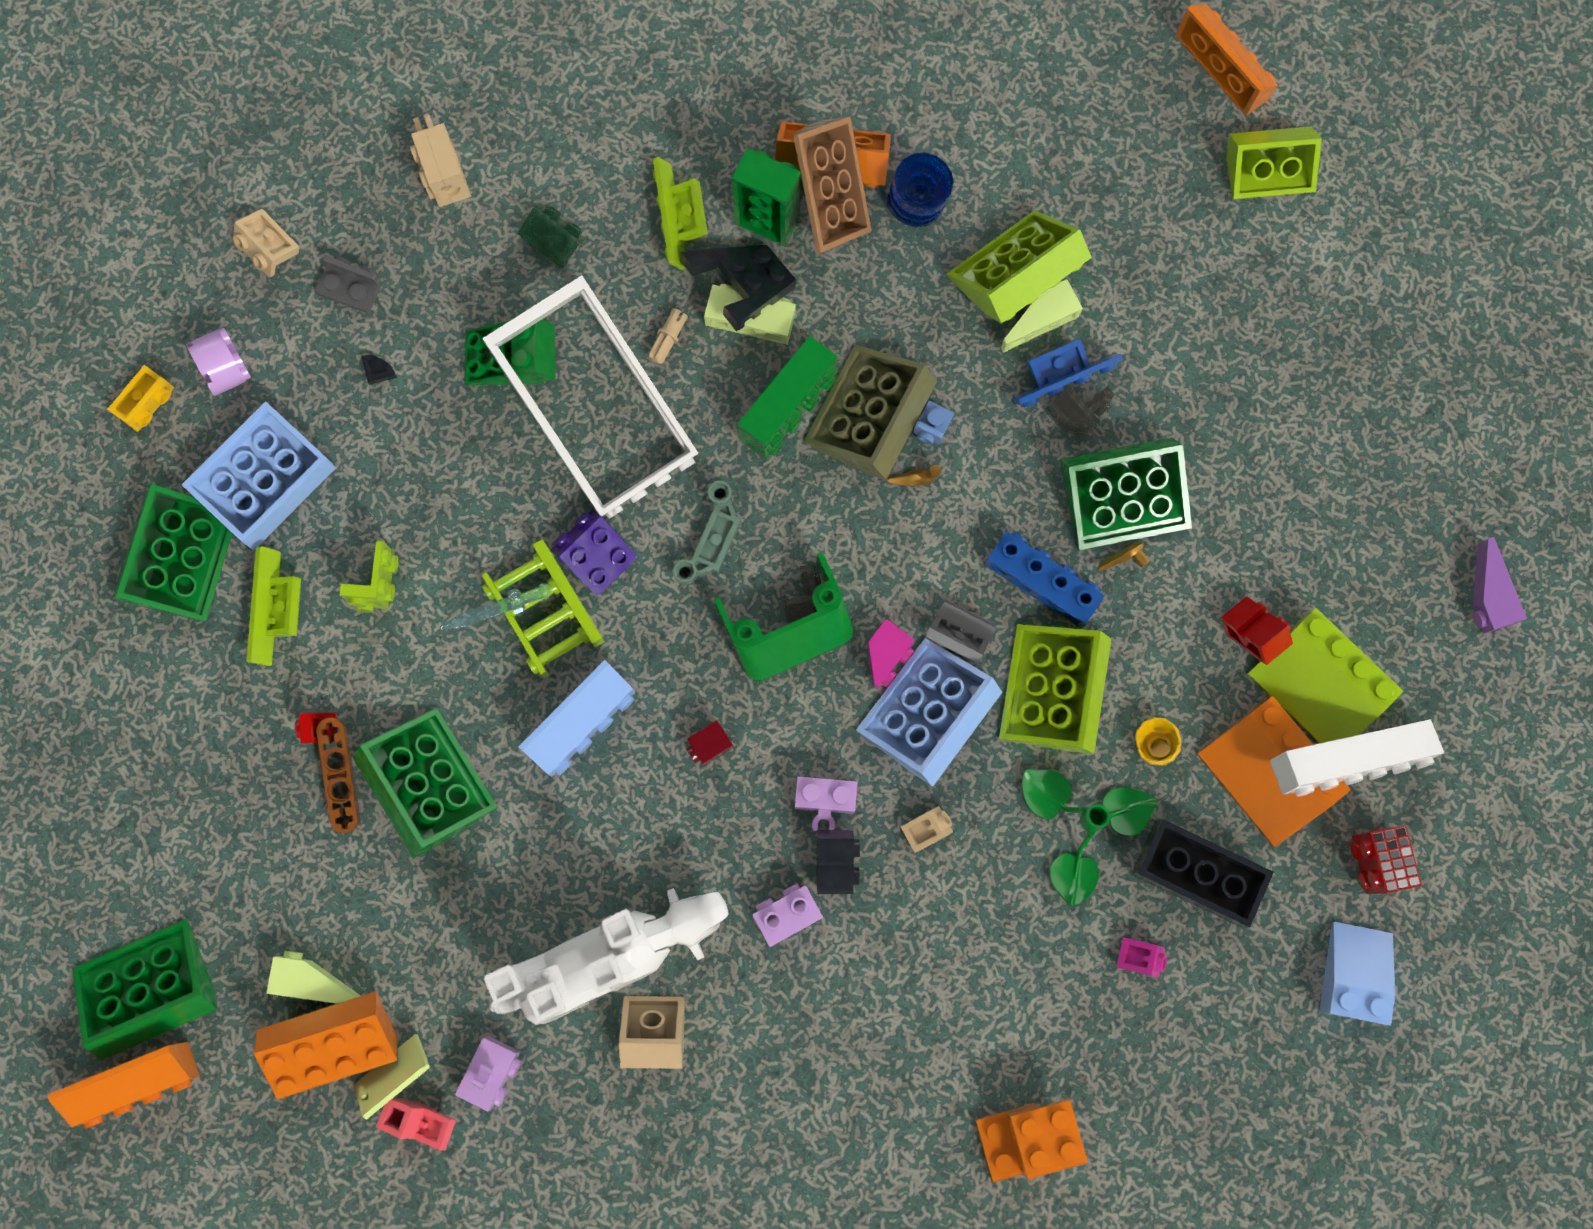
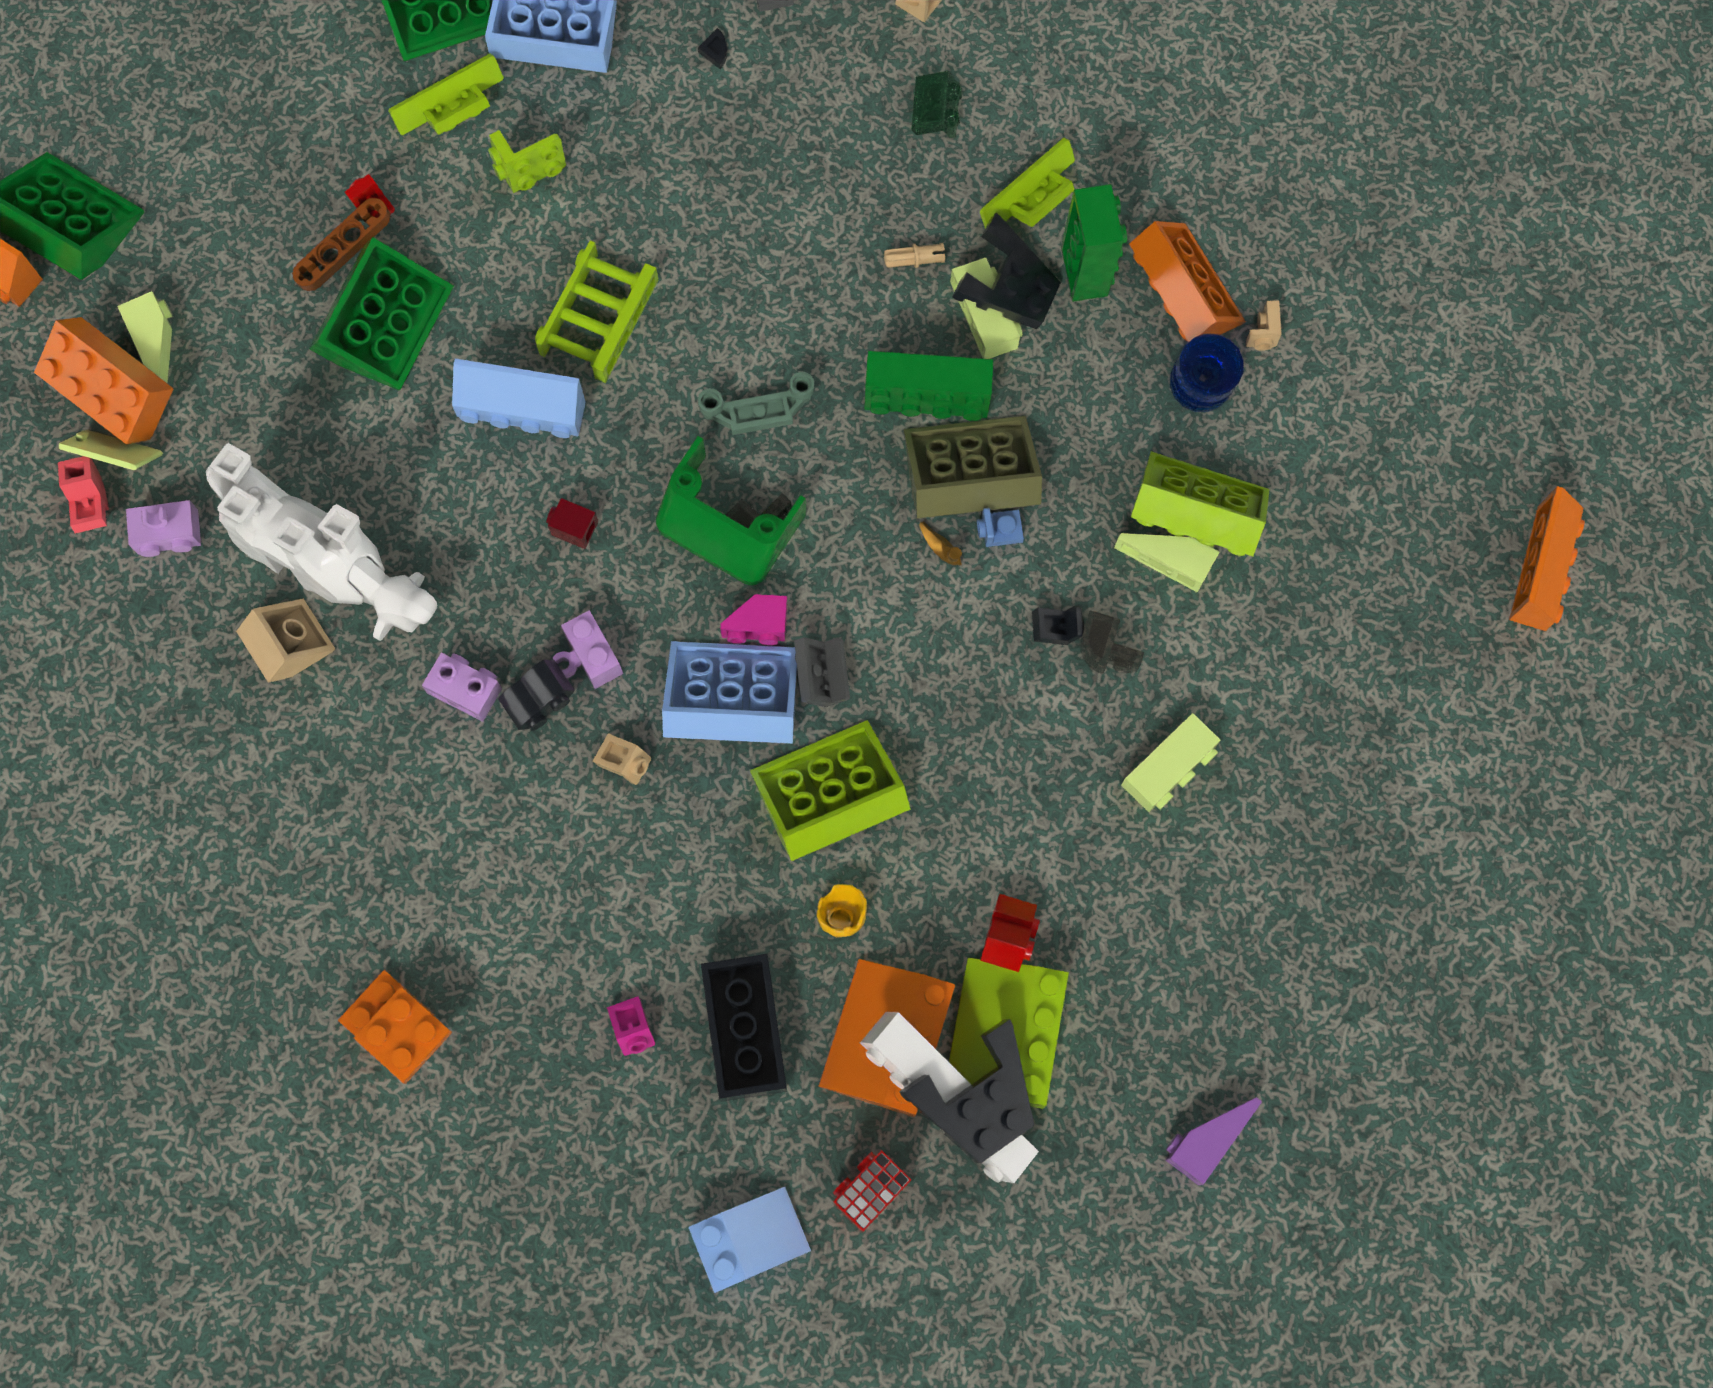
camera: 55 degrees right, 5 degrees down
(514, 601) = (584, 281): clear light blue sword -> none
(528, 353) = (806, 141): green slope -> none
(537, 313) = (836, 123): white door -> none
(593, 552) = (676, 320): dark purple bracket -> none
(832, 182) = (1143, 284): medium nougat slope -> none
(910, 117) = (1268, 329): none -> tan bracket
(1040, 434) = (1057, 625): none -> black bracket
(1044, 579) = (924, 714): blue brick -> none
(1060, 367) = (1134, 602): blue bracket -> none
(1122, 556) = (1009, 778): pearl gold bar -> none
(1124, 807) = (762, 924): green plant -> none
(1127, 493) = (1058, 737): green slope -> none
(1200, 426) = (1172, 764): none -> yellowish green brick
(1273, 162) = (1479, 669): lime slope -> none
(1388, 734) = (989, 1110): none -> black wing

